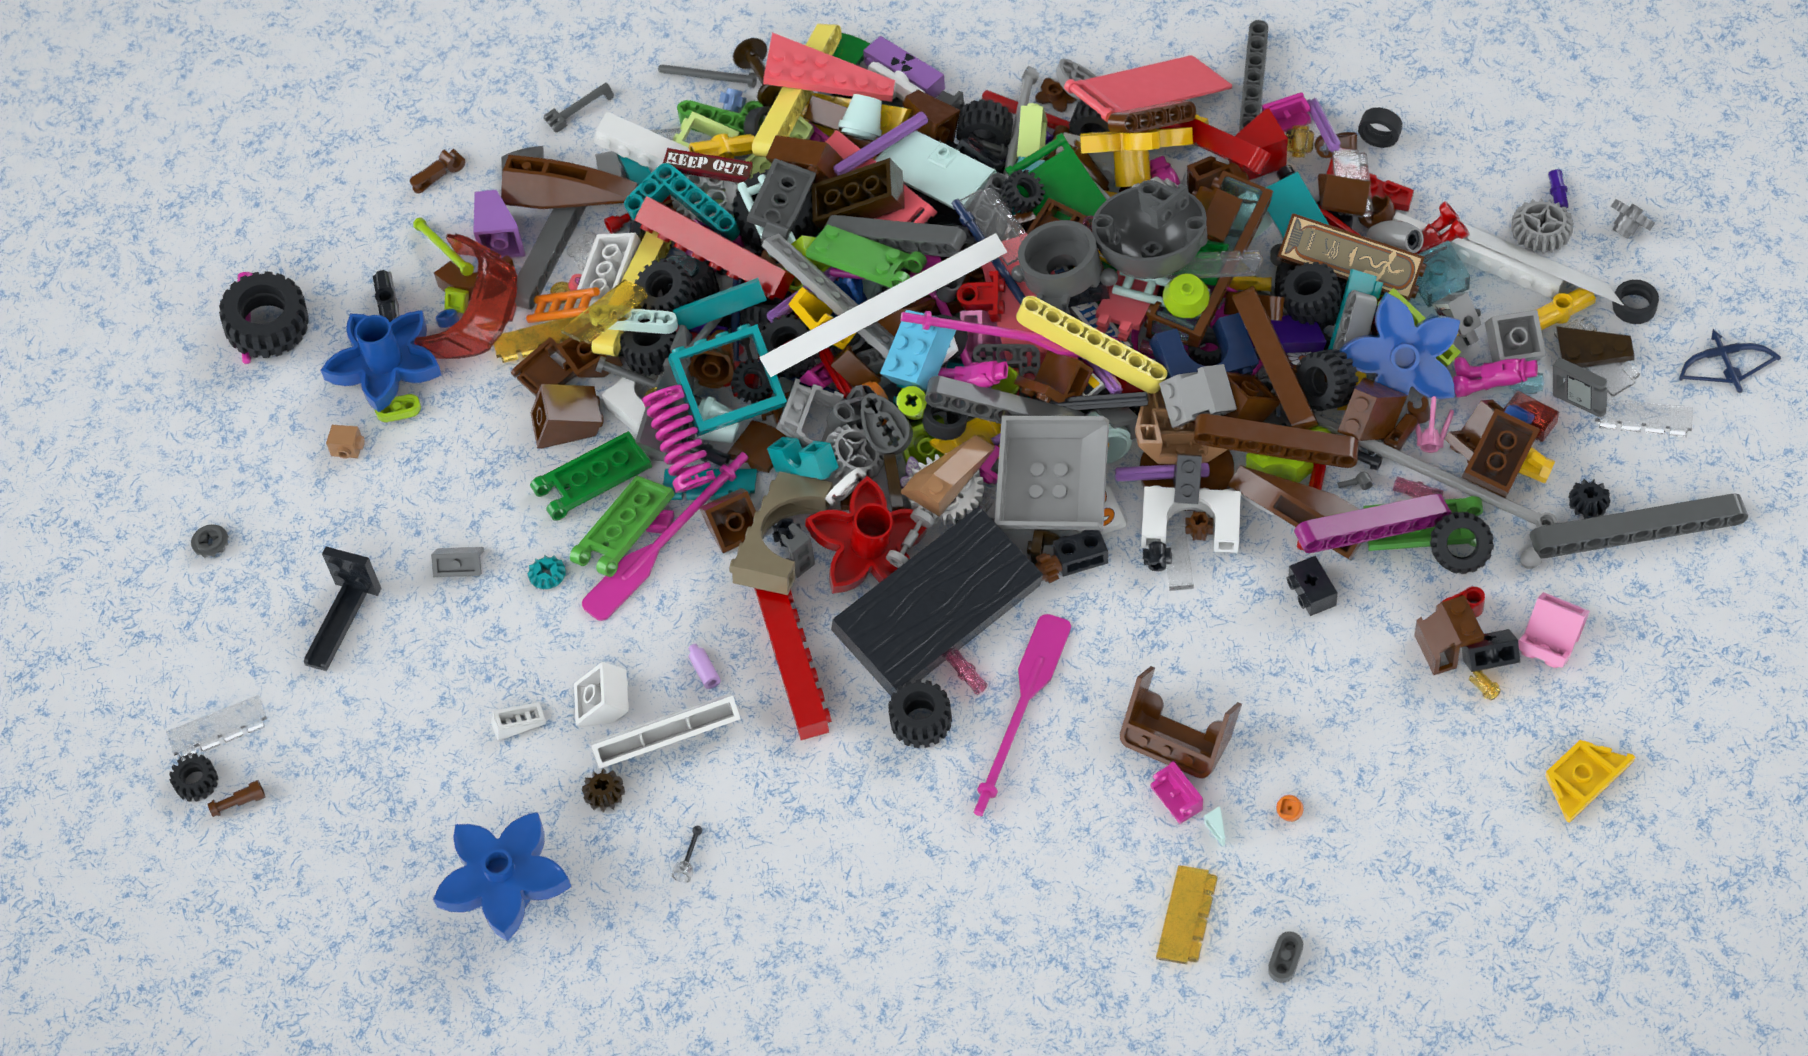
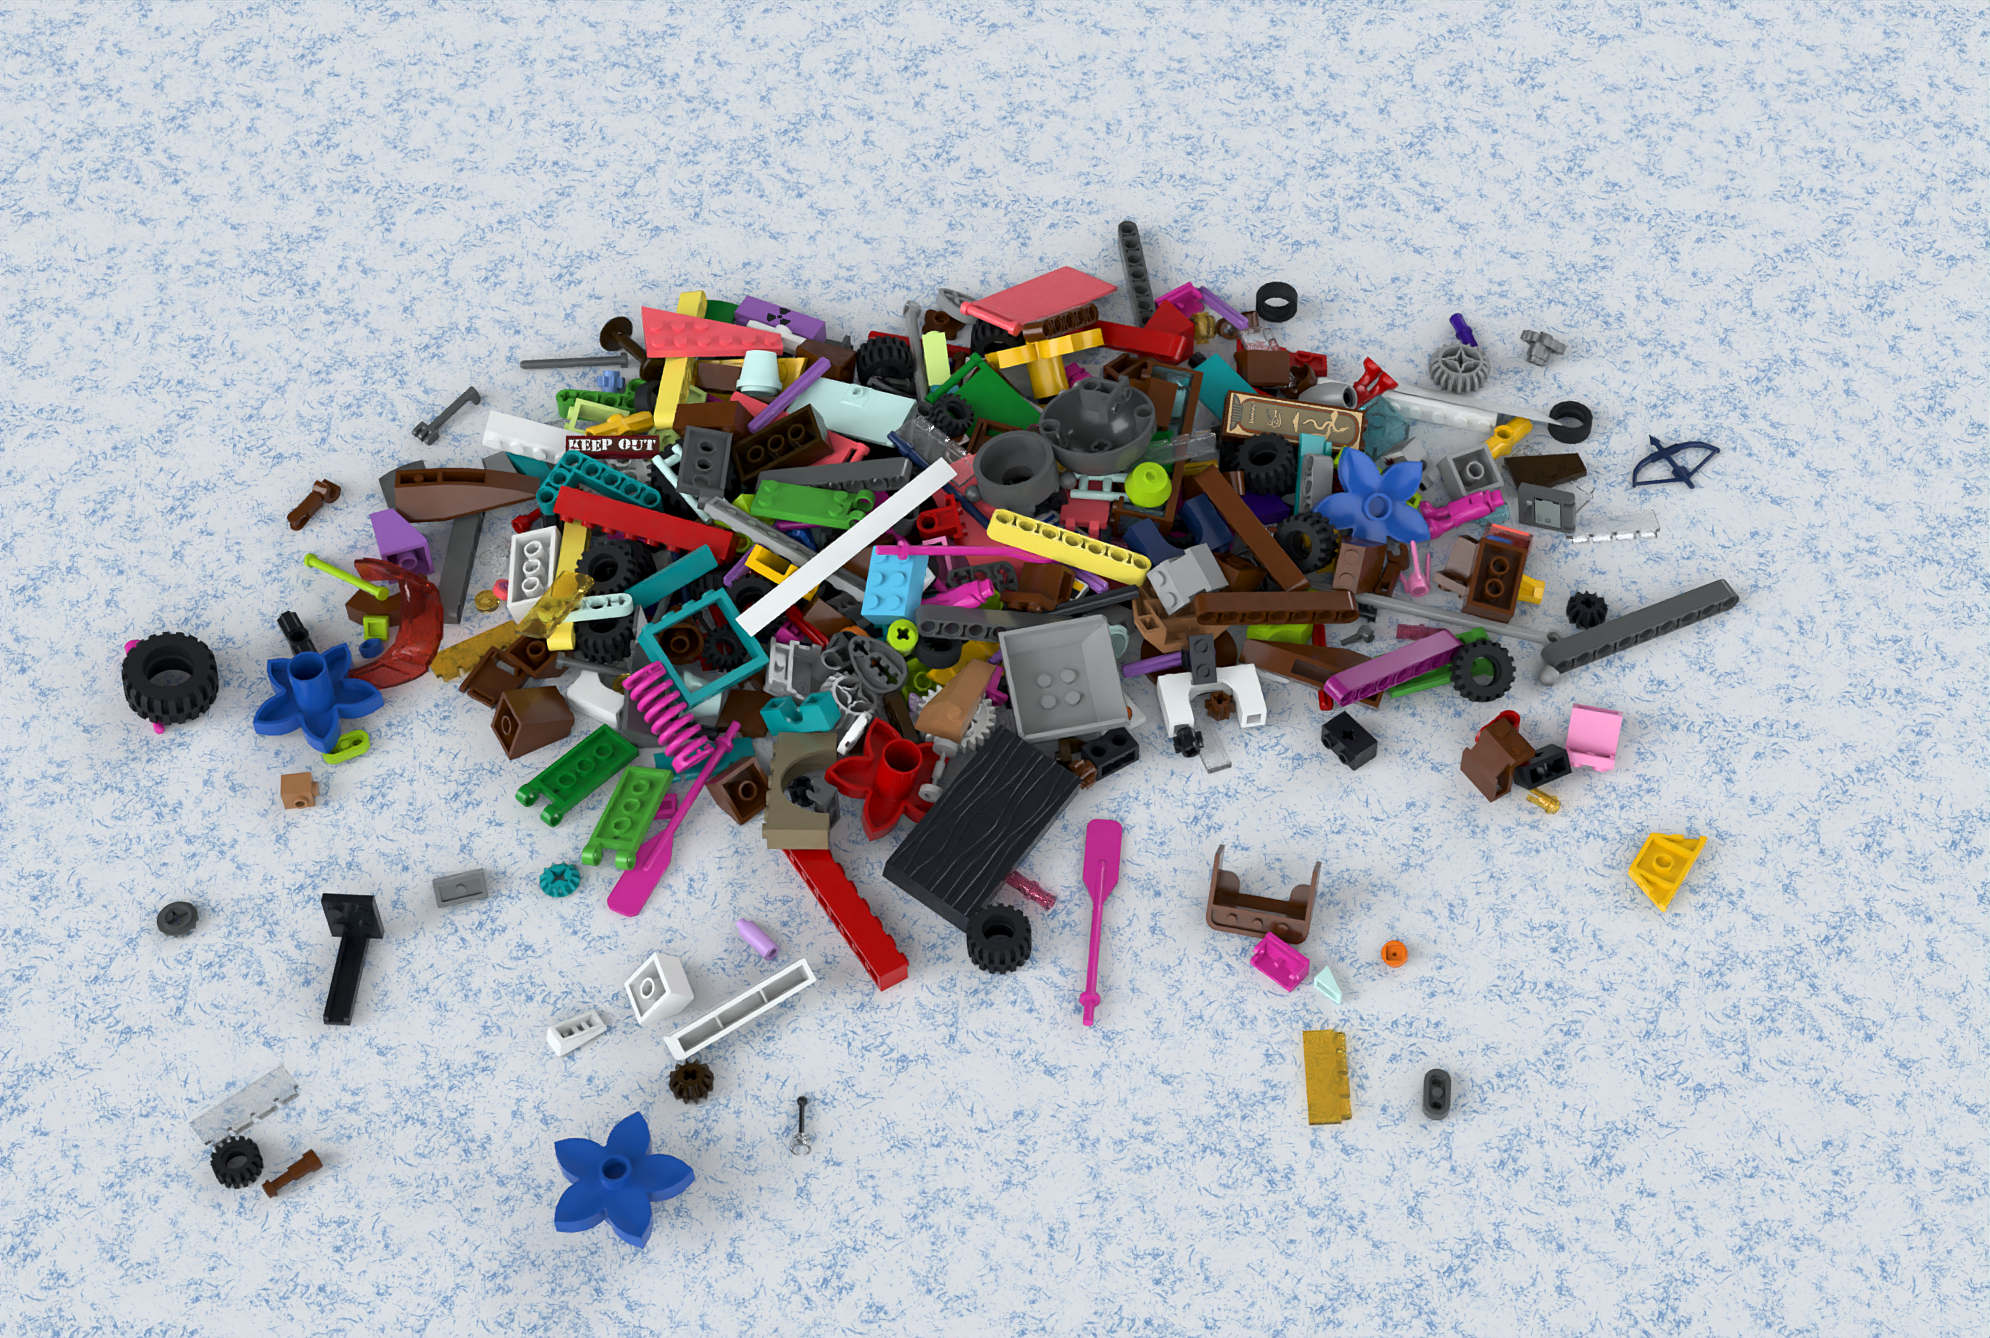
camera: 20 degrees left, 5 degrees down
(556, 300) = (488, 607): orange bar -> none

